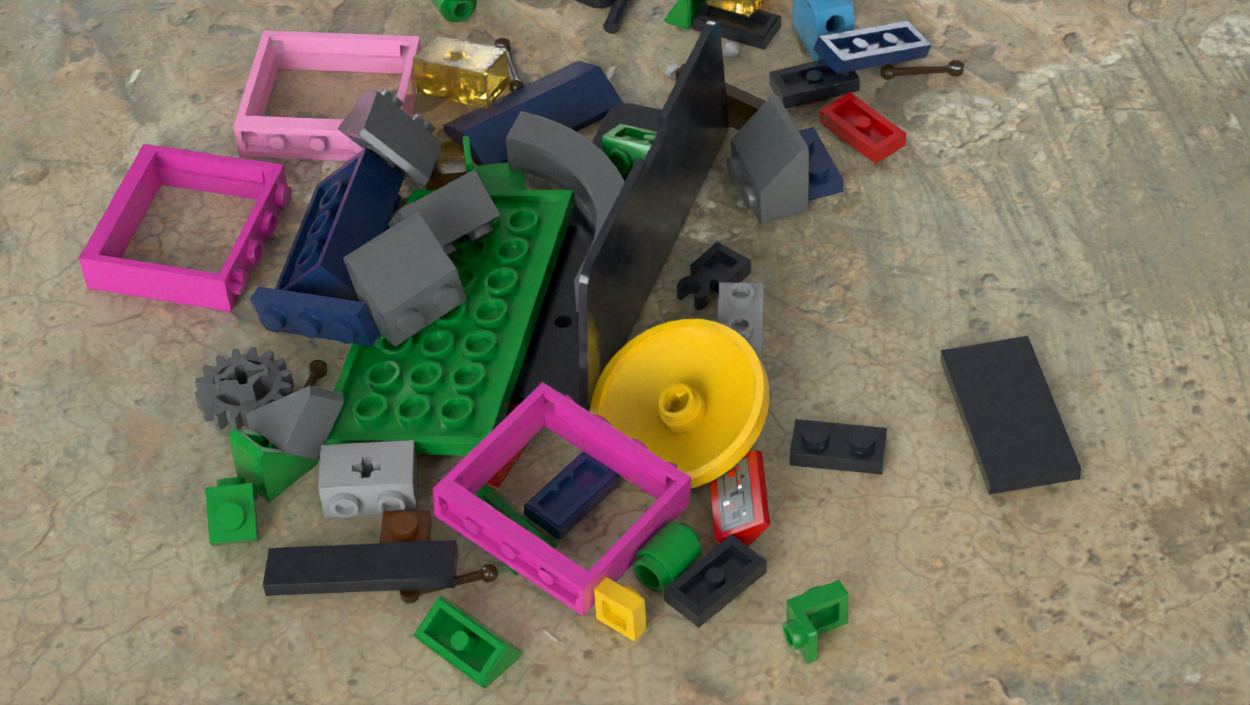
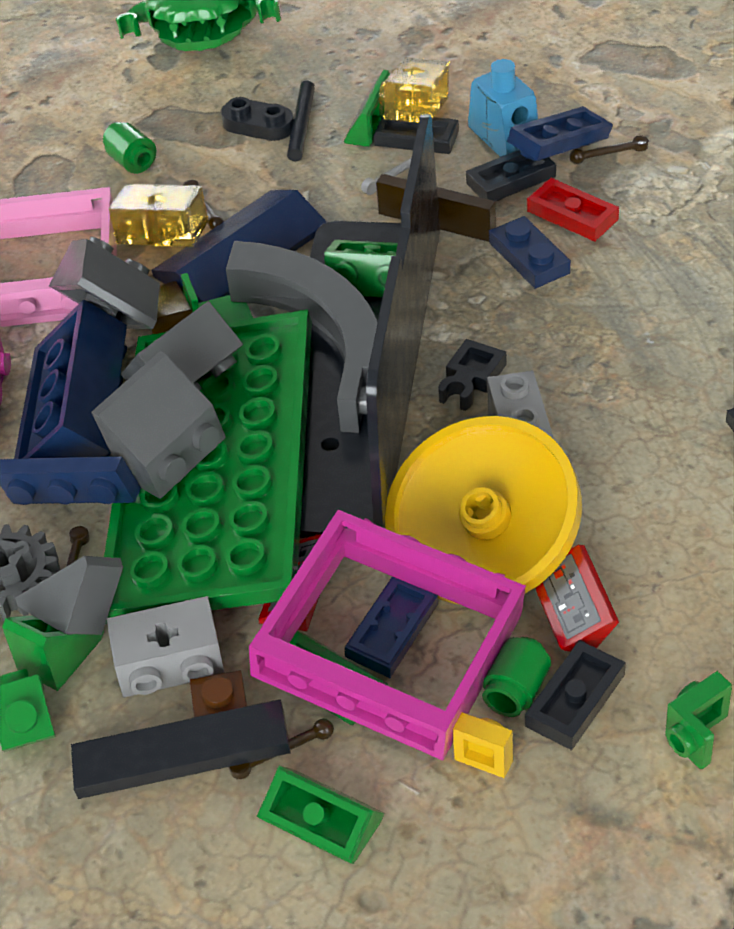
camera: 10 degrees left, 0 degrees up
(771, 163) = (499, 253): dark grey slope -> none
(838, 446) = (655, 526): black plate -> none

